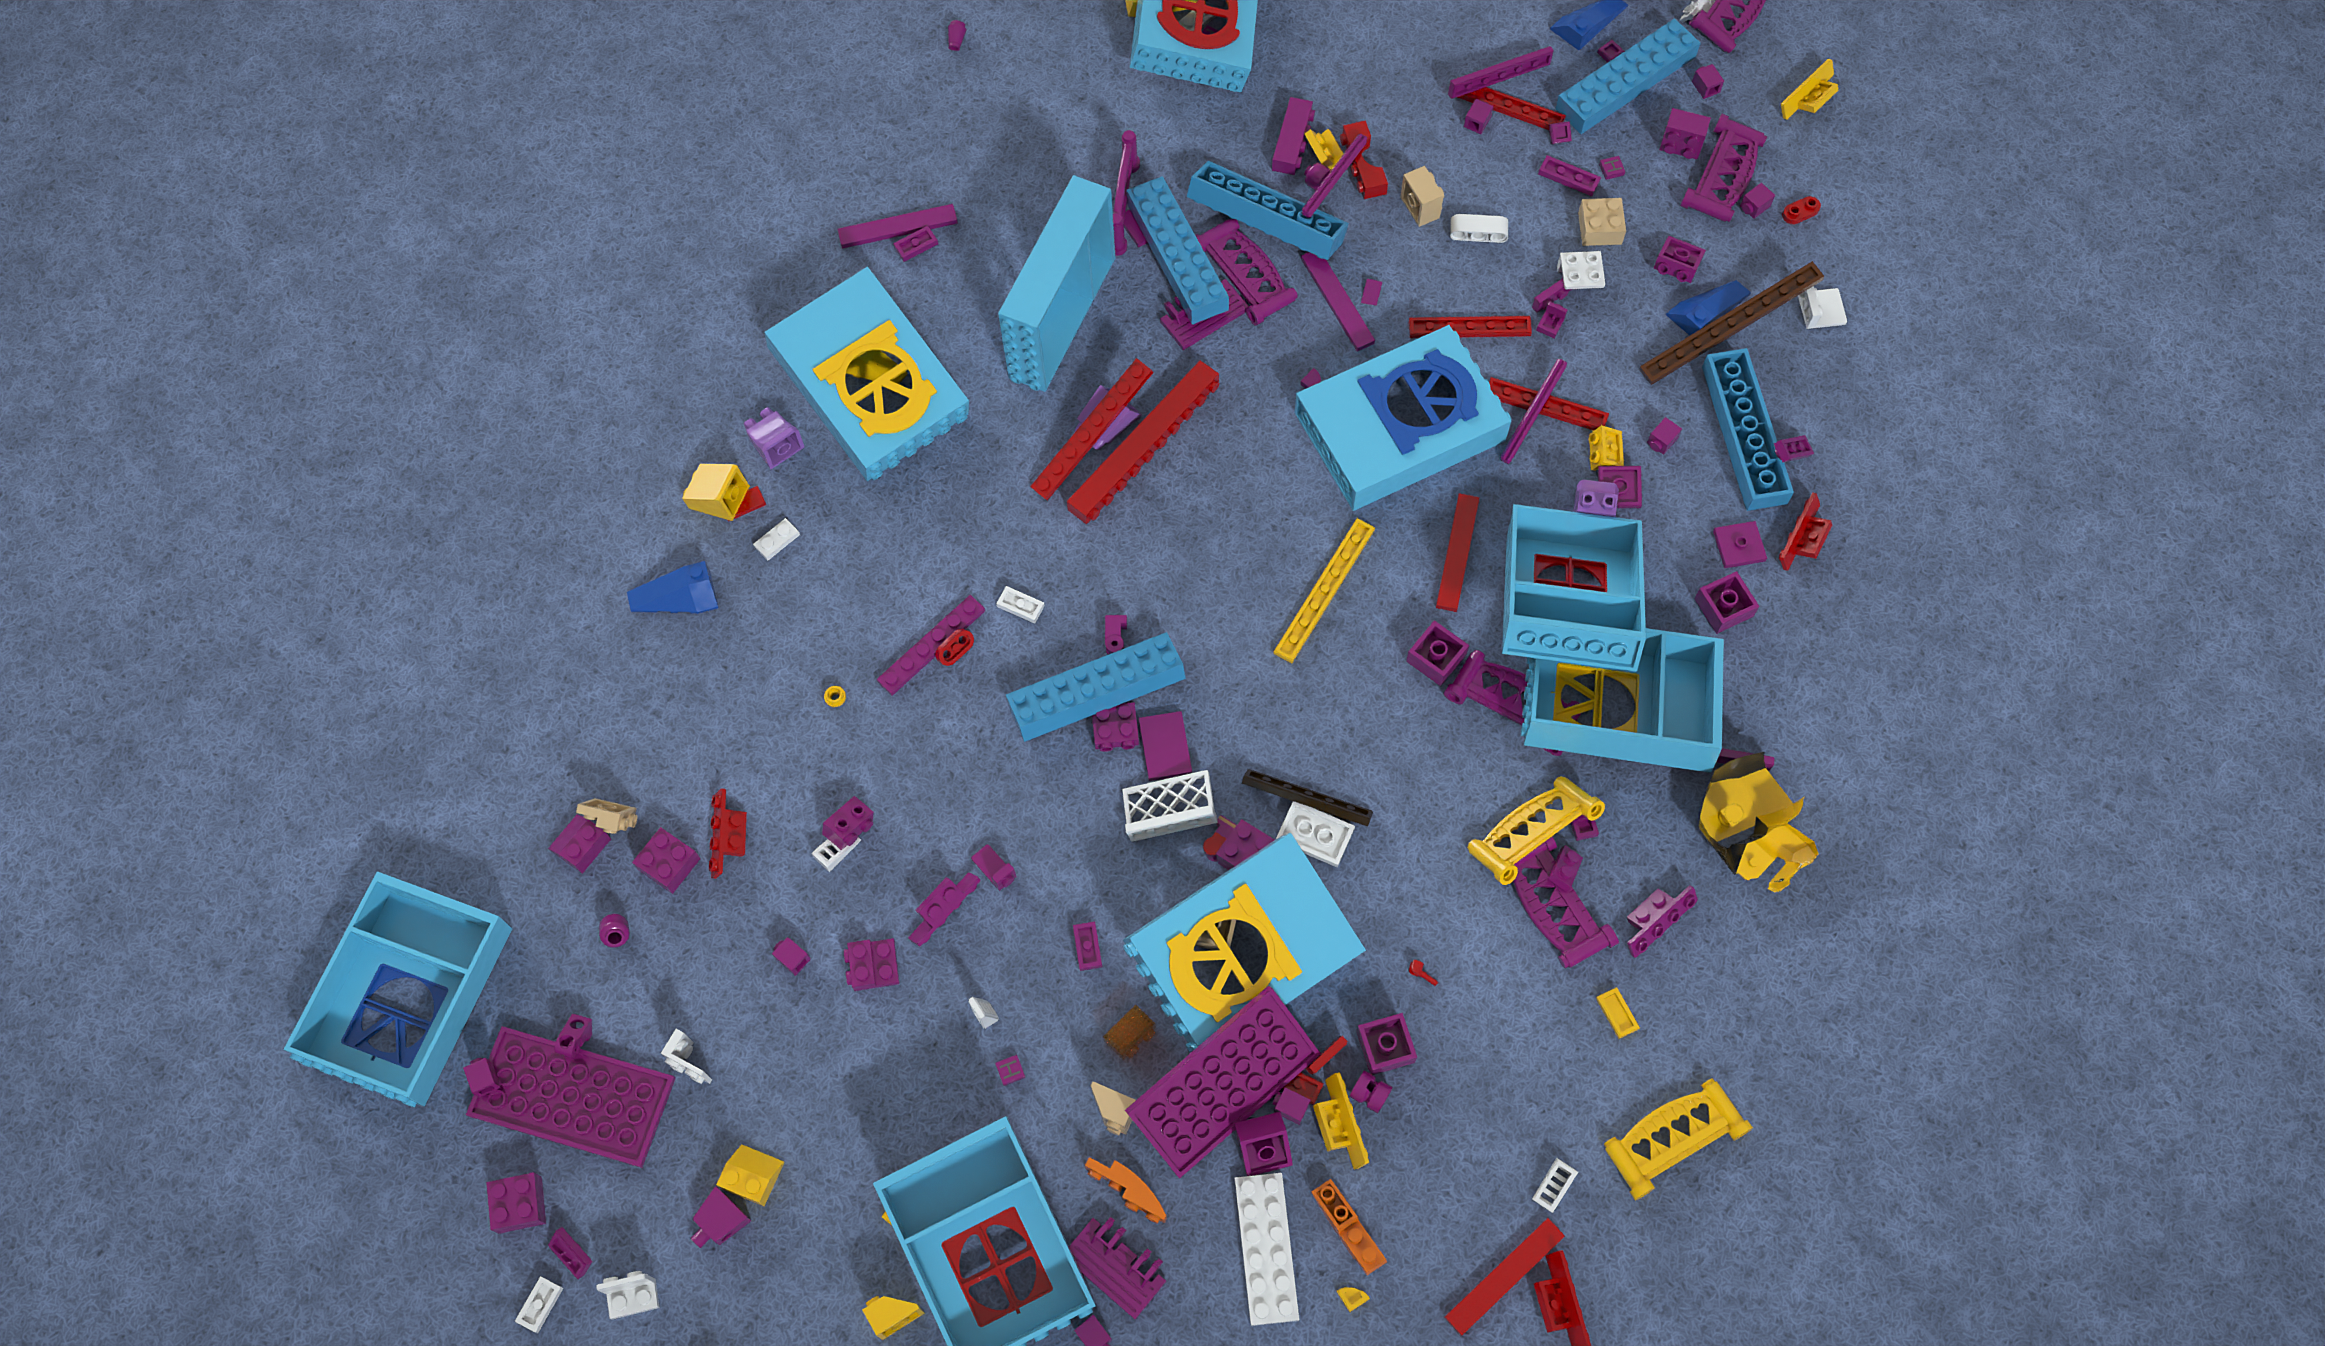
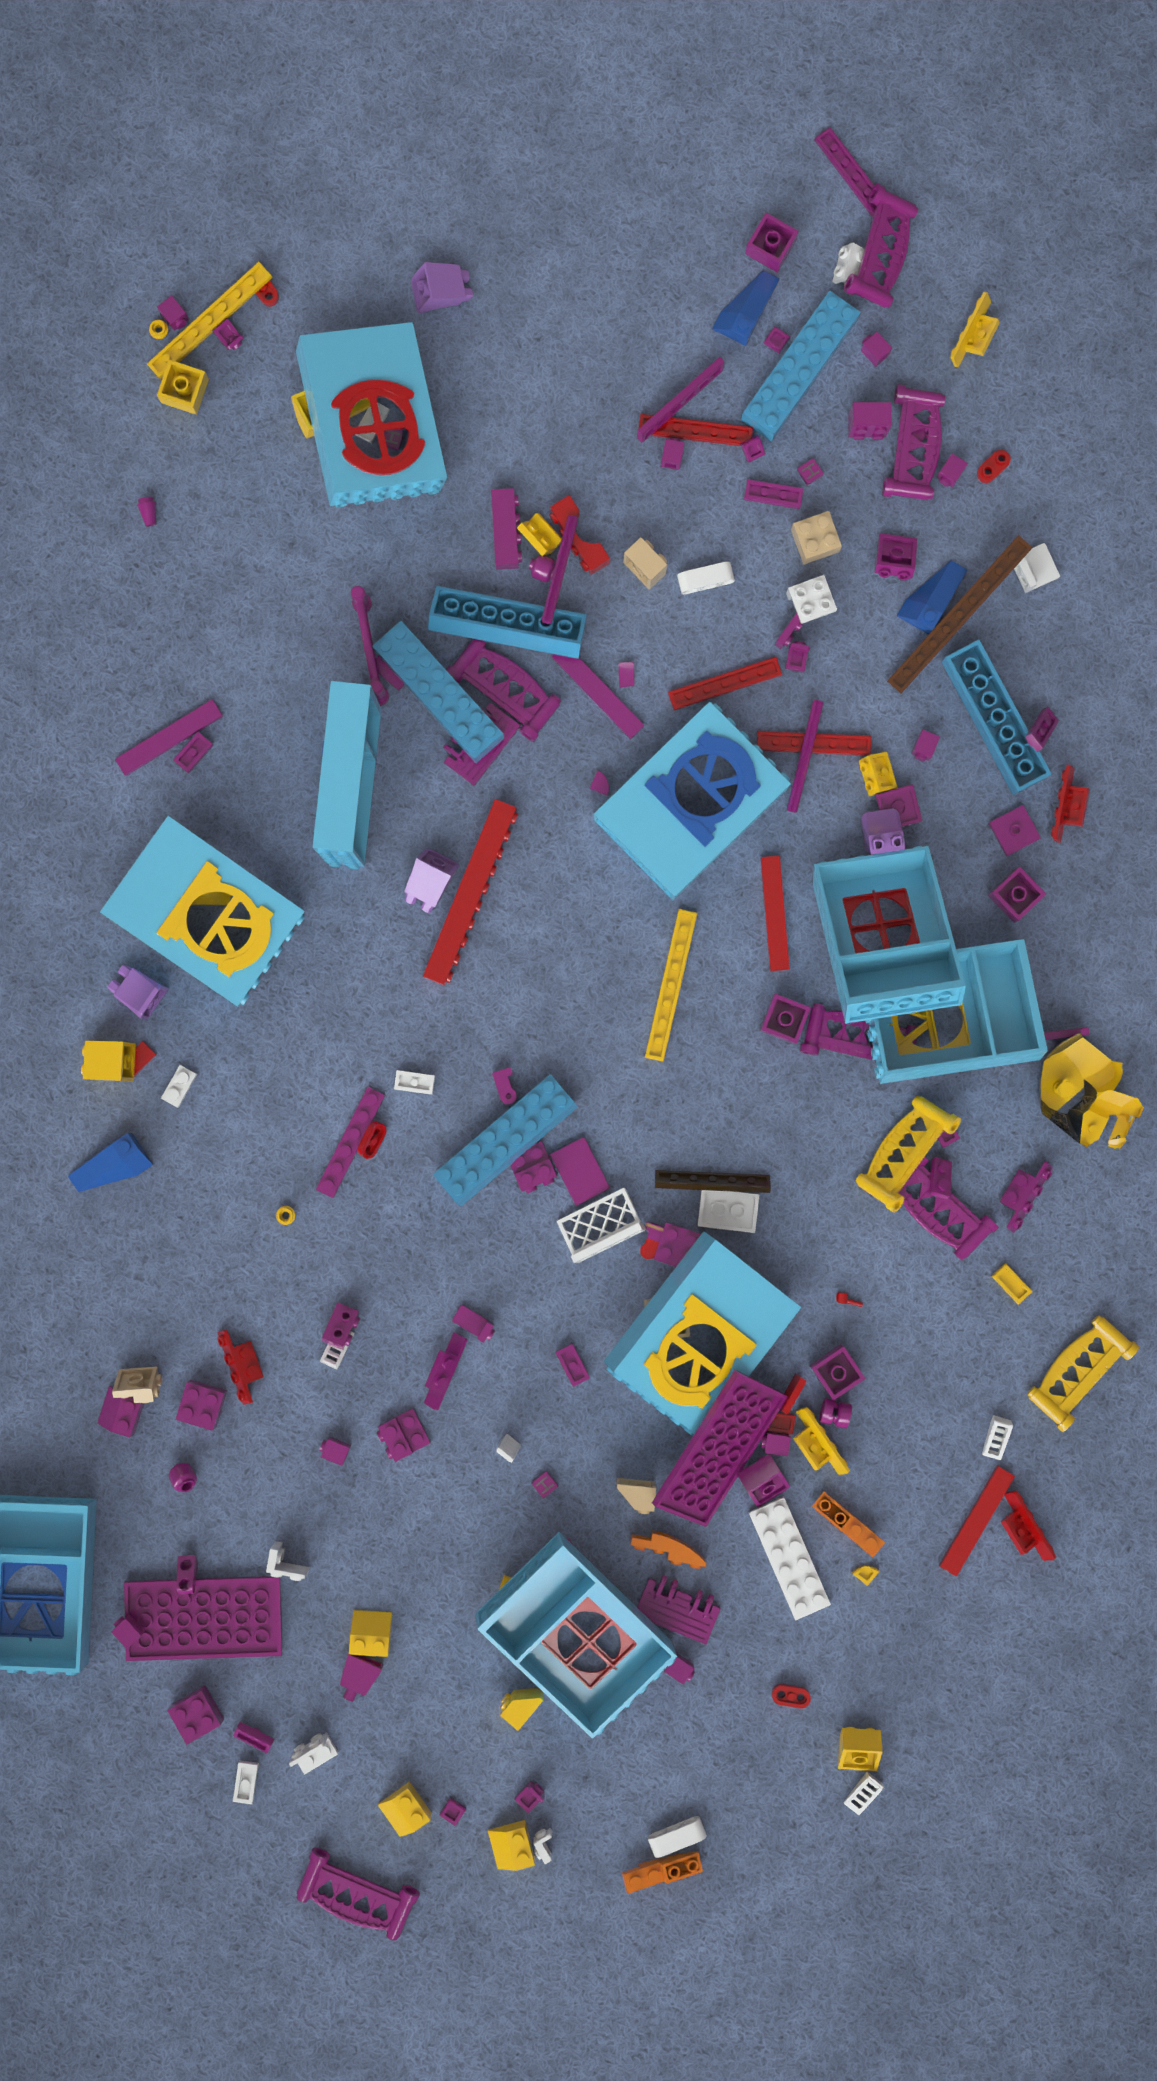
camera: 25 degrees left, 20 degrees up
(1092, 429) = (422, 901): red plate -> none
(1130, 1032) = (631, 1425): clear orange brick -> none

